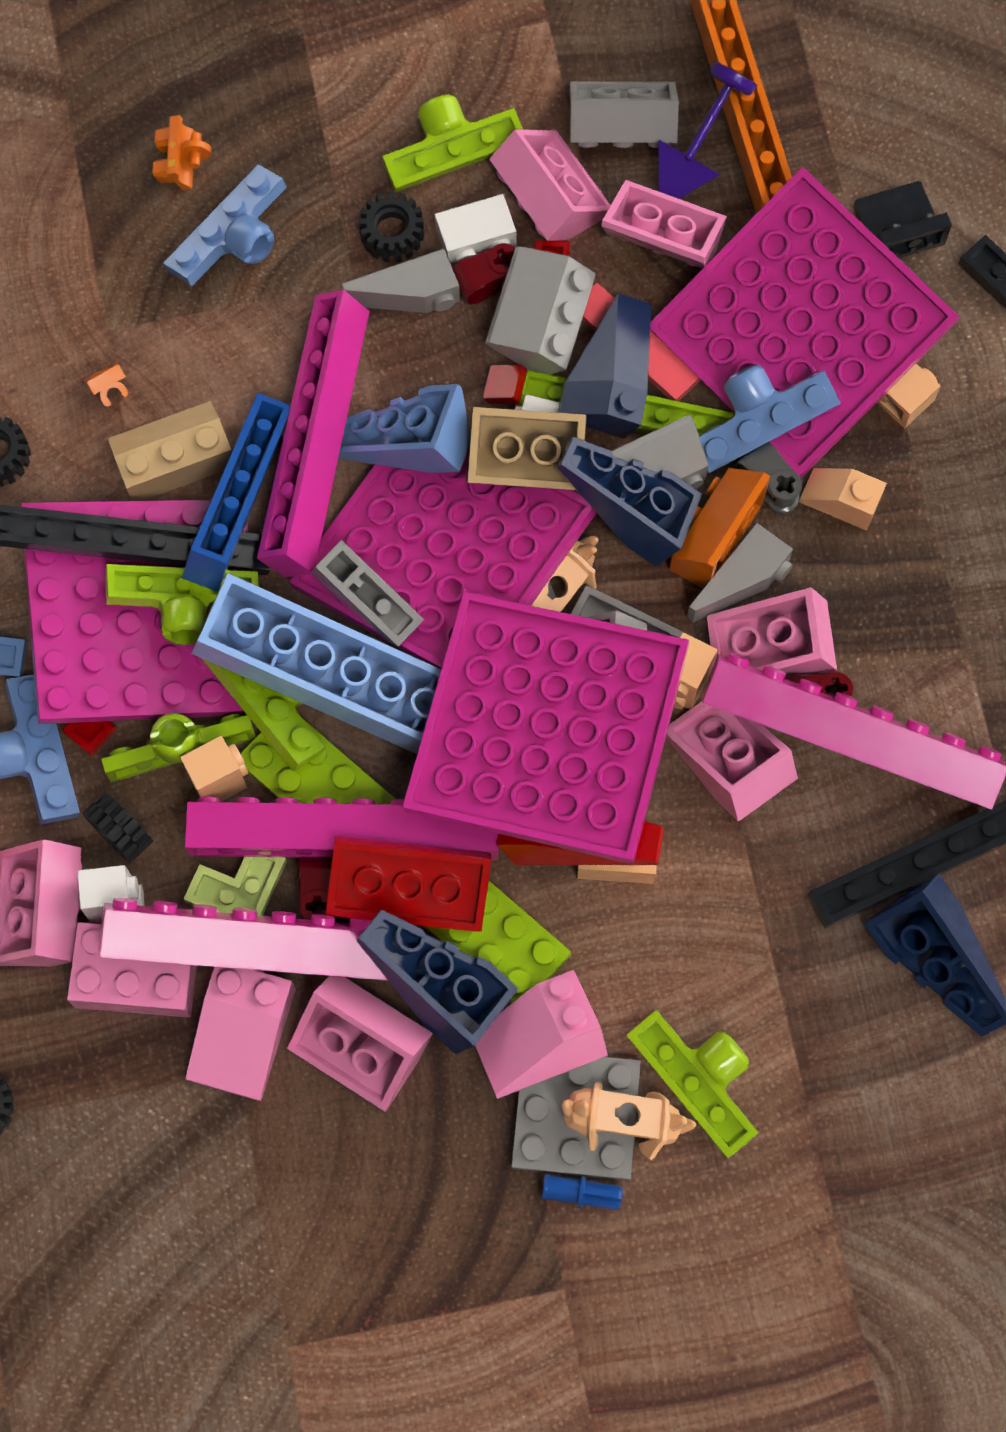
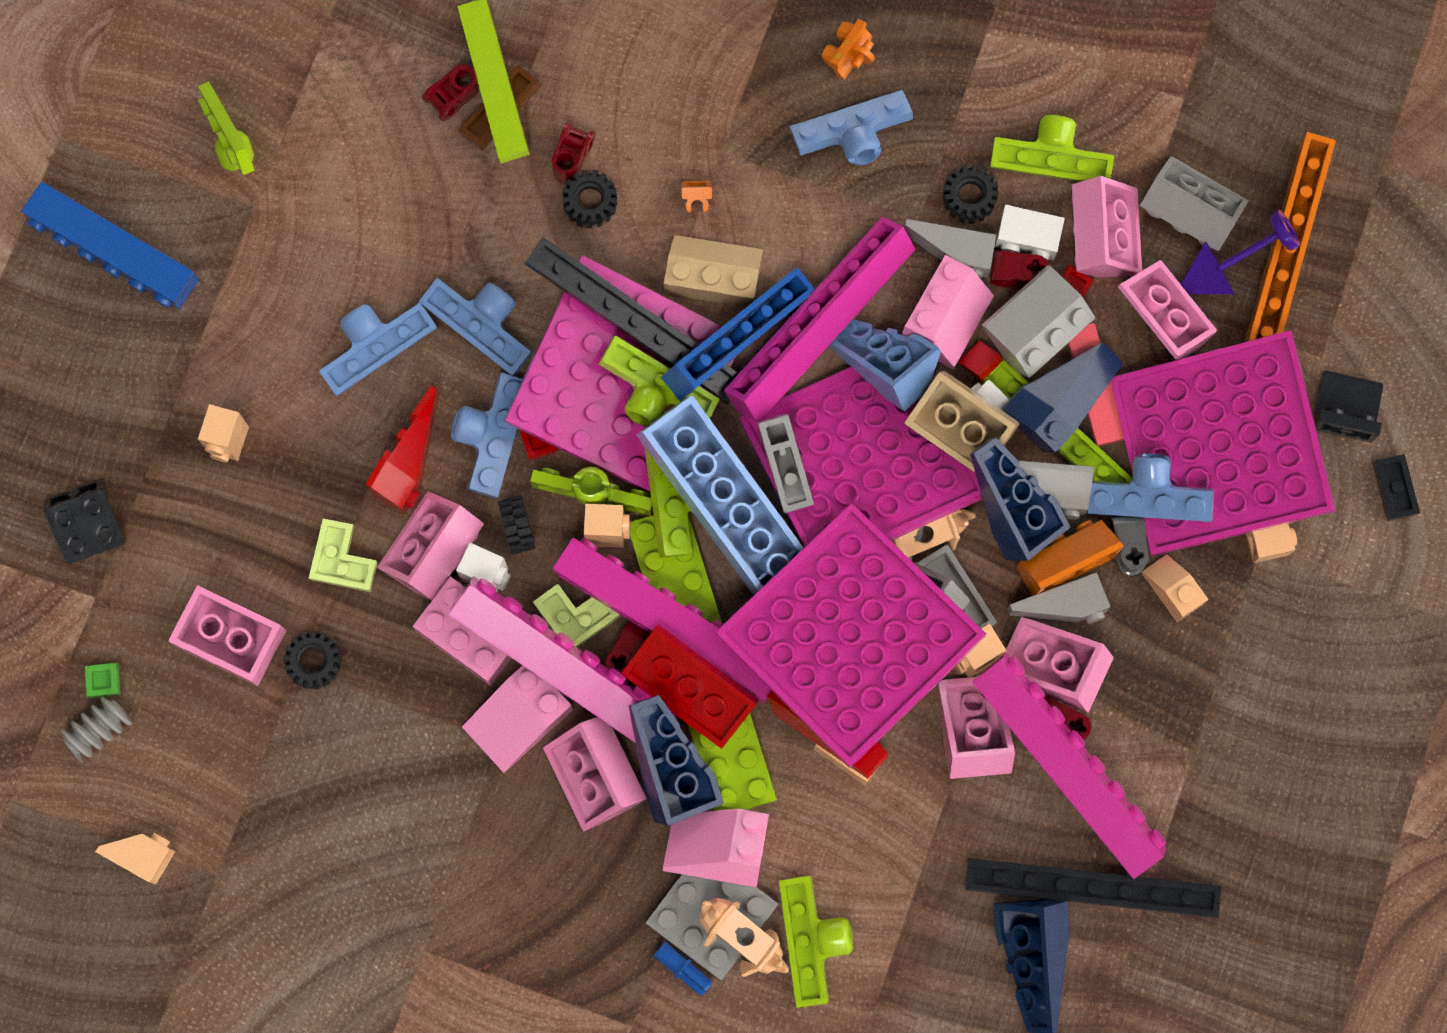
camera: 30 degrees right, 5 degrees up
(442, 346) = (950, 309): none -> bright pink slope

